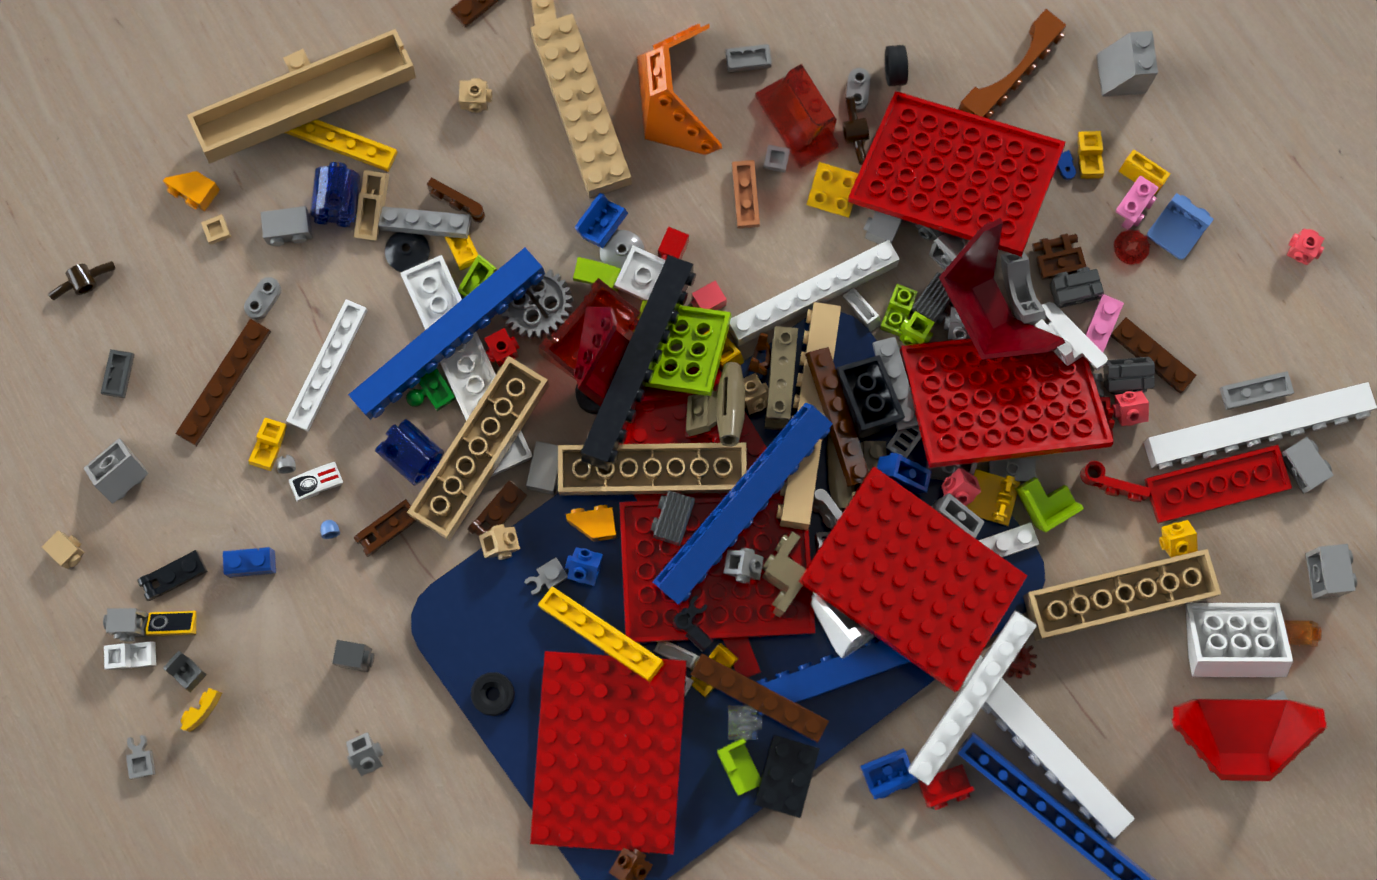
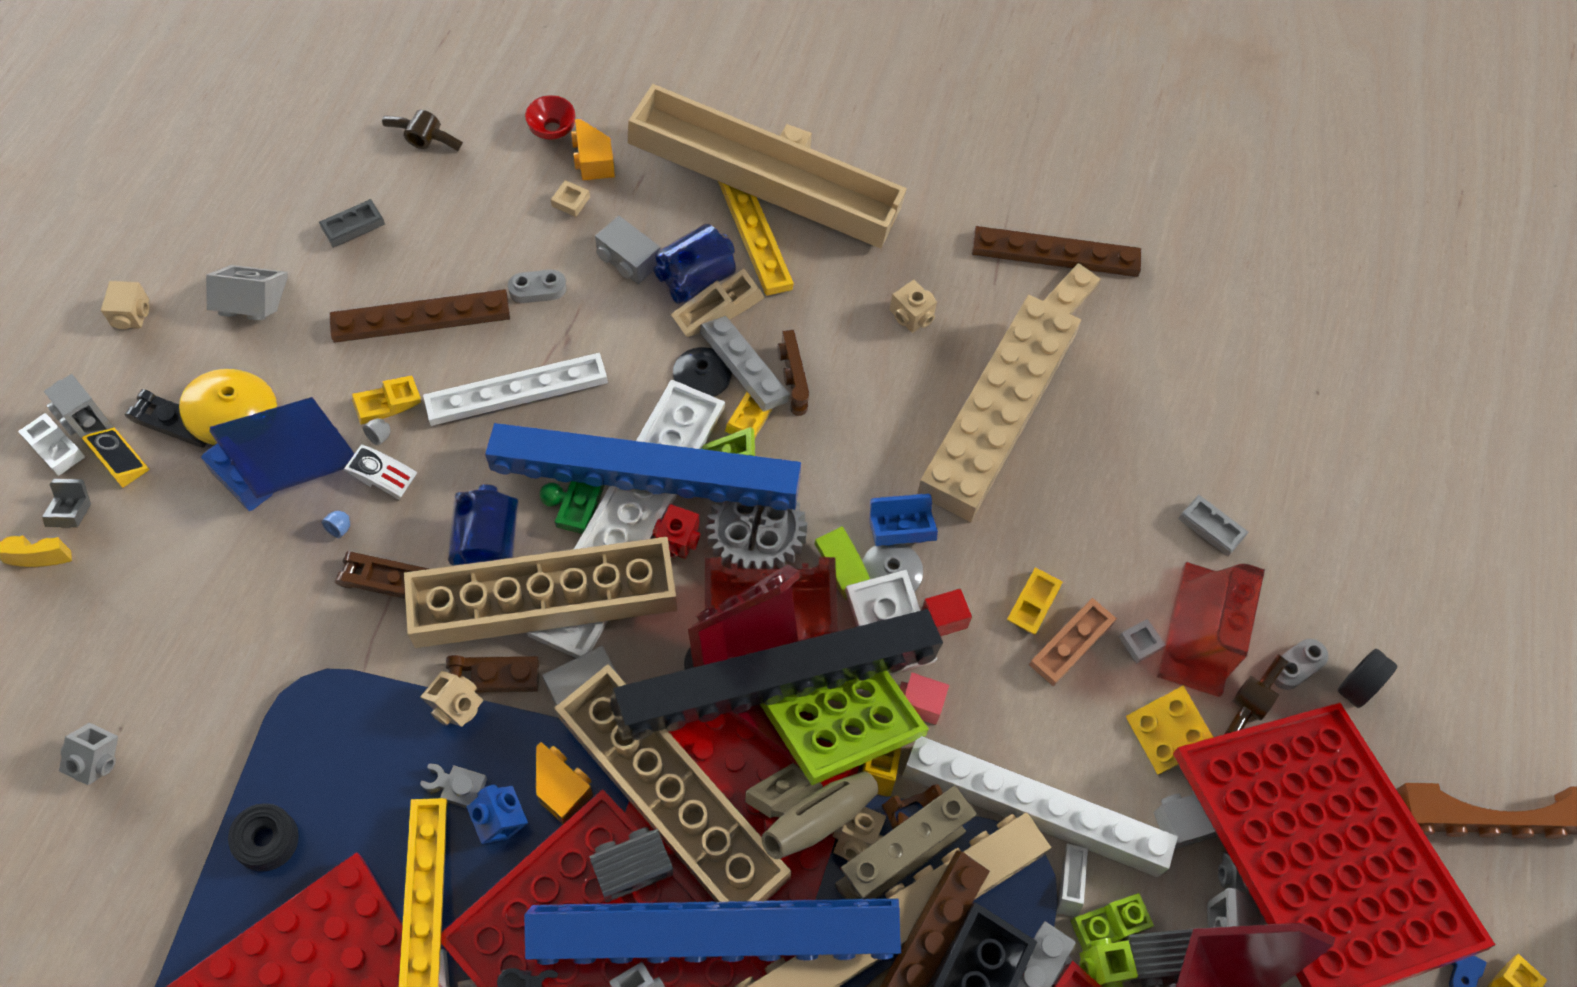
camera: 45 degrees right, 15 degrees down
(139, 185) = (550, 110): none -> red piece
(196, 549) = (206, 406): none -> yellow dish
(254, 523) = (283, 446): none -> clear blue piece
(353, 656) = (198, 650): dark grey brick -> none
(663, 112) = (1072, 492): orange piece -> none
(706, 192) = (1034, 601): none -> yellow slope

